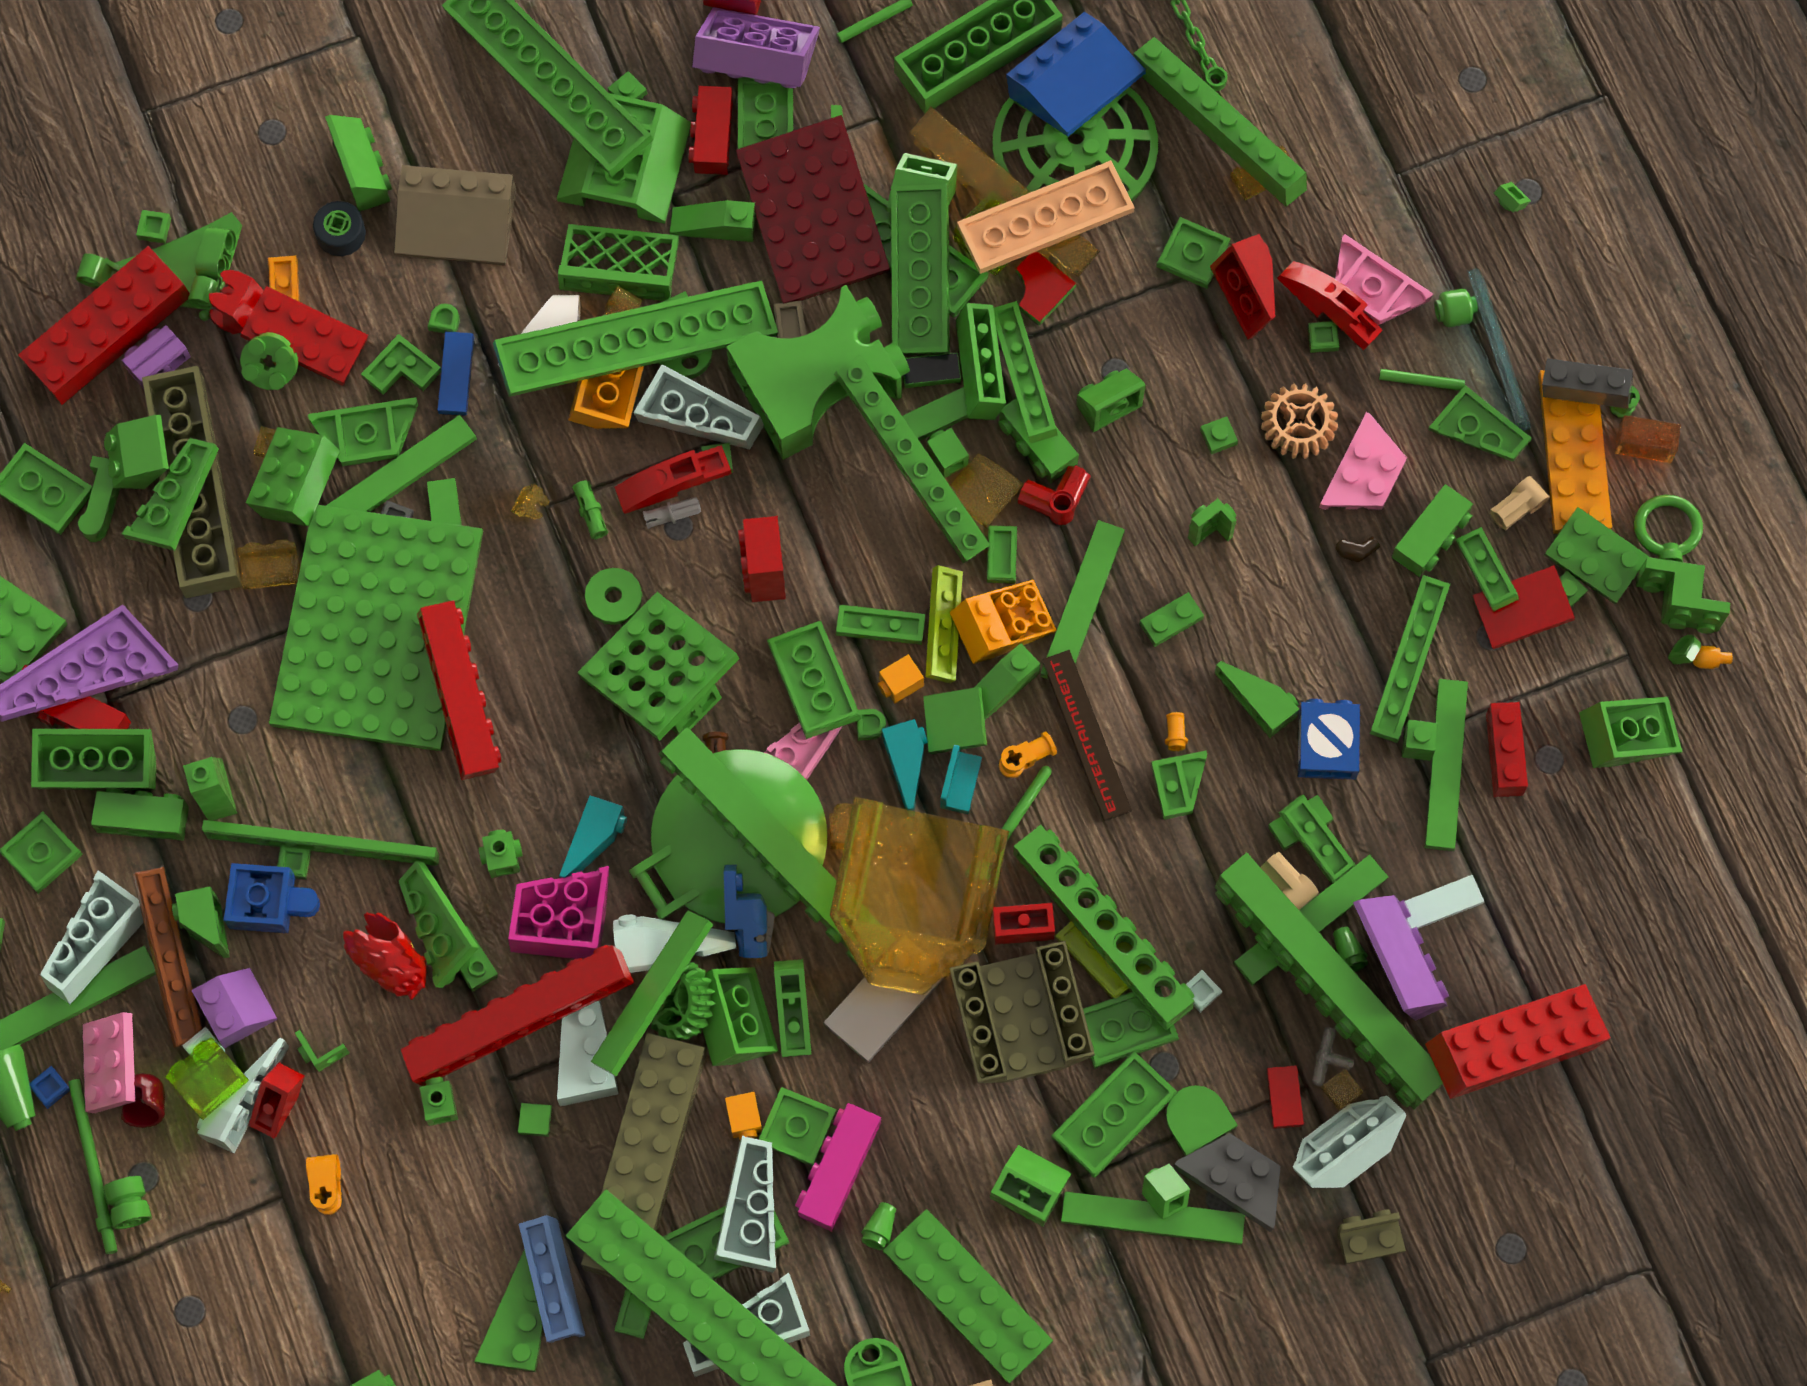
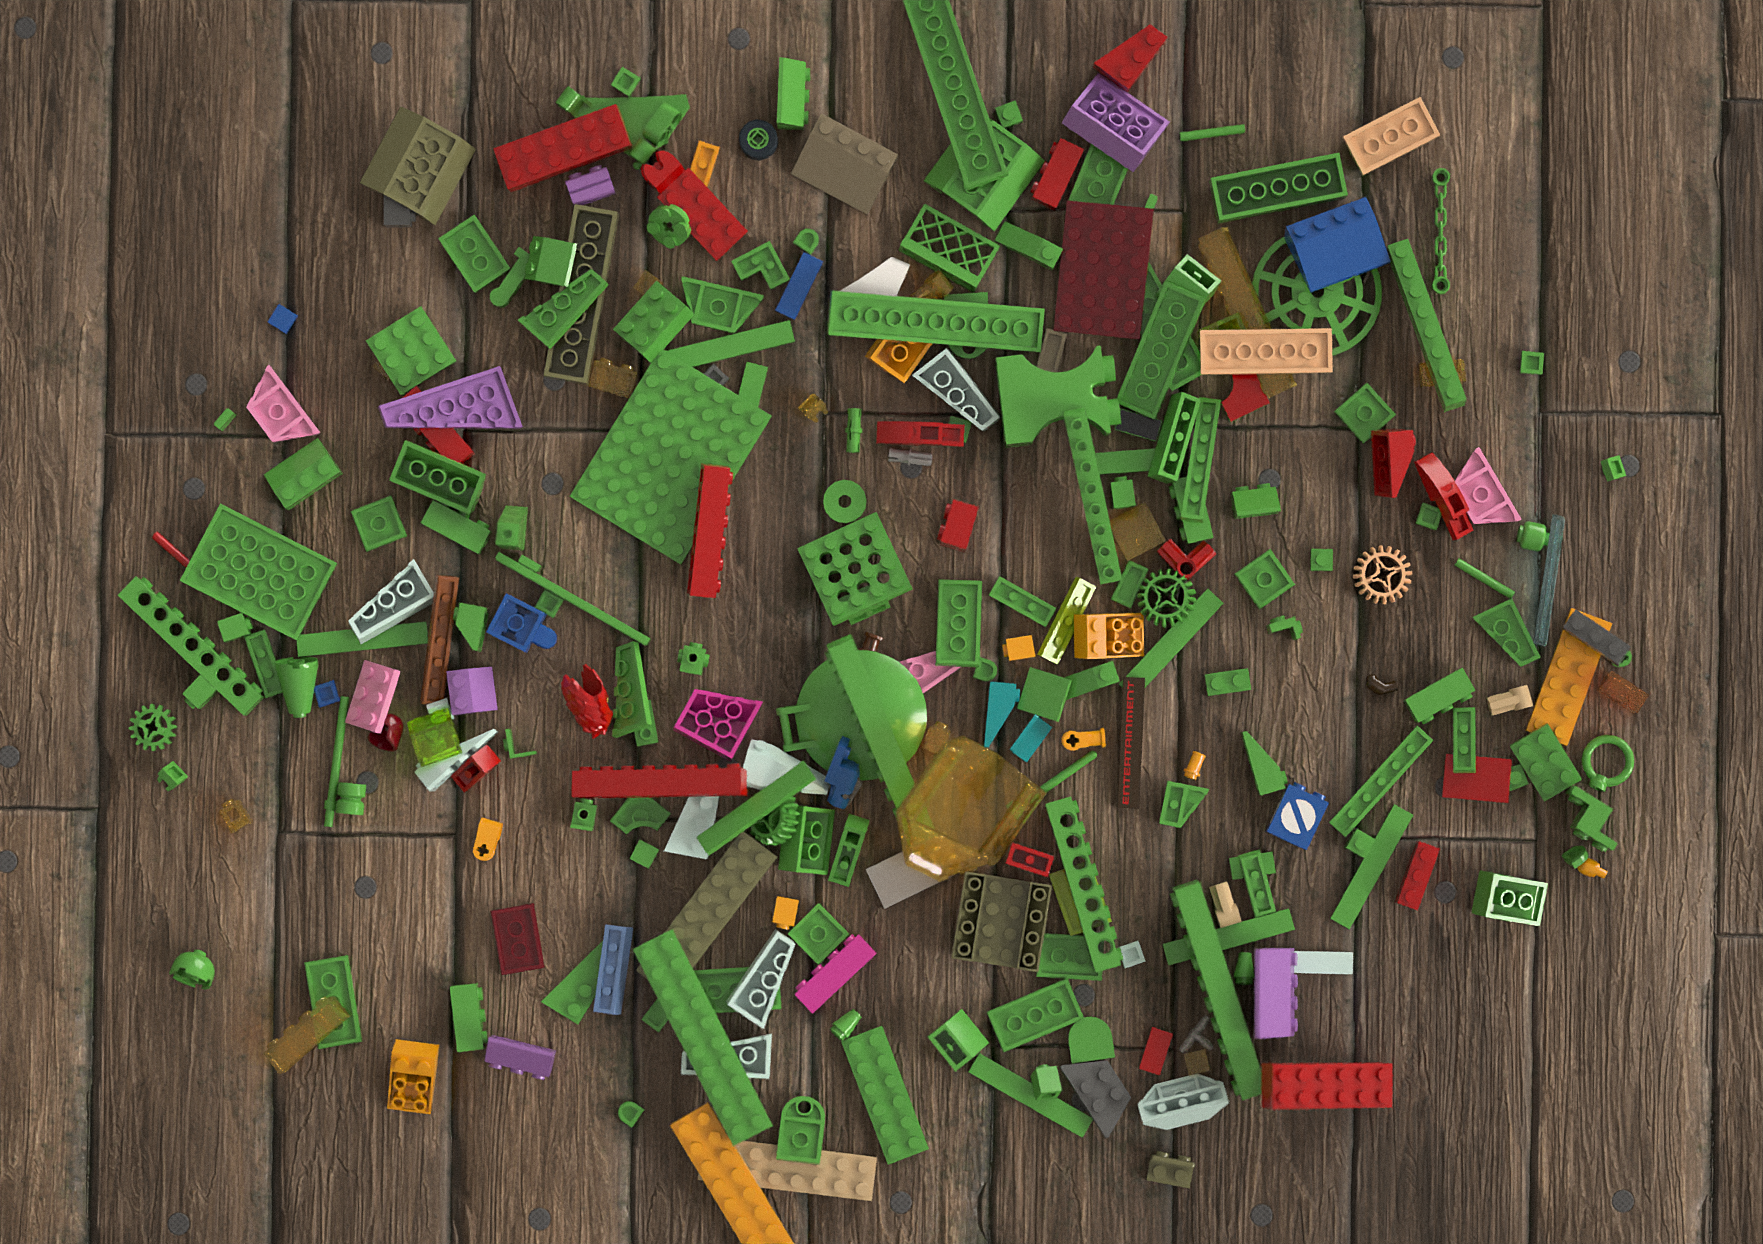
camera: 25 degrees right, 15 degrees up
(249, 819) = (529, 564): none -> bright green tile
(413, 1295) = (517, 939): none -> dark red tile
(508, 1070) = (638, 813): none -> bright green tile
(594, 834) = (764, 669): teal slope -> none
(1072, 556) = (1160, 606): none -> bright green gear
(1161, 484) = (1264, 579): none -> bright green tile
(1361, 121) = (1531, 363): none -> bright green plate
(1366, 470) = (1414, 629): bright pink wing -> none

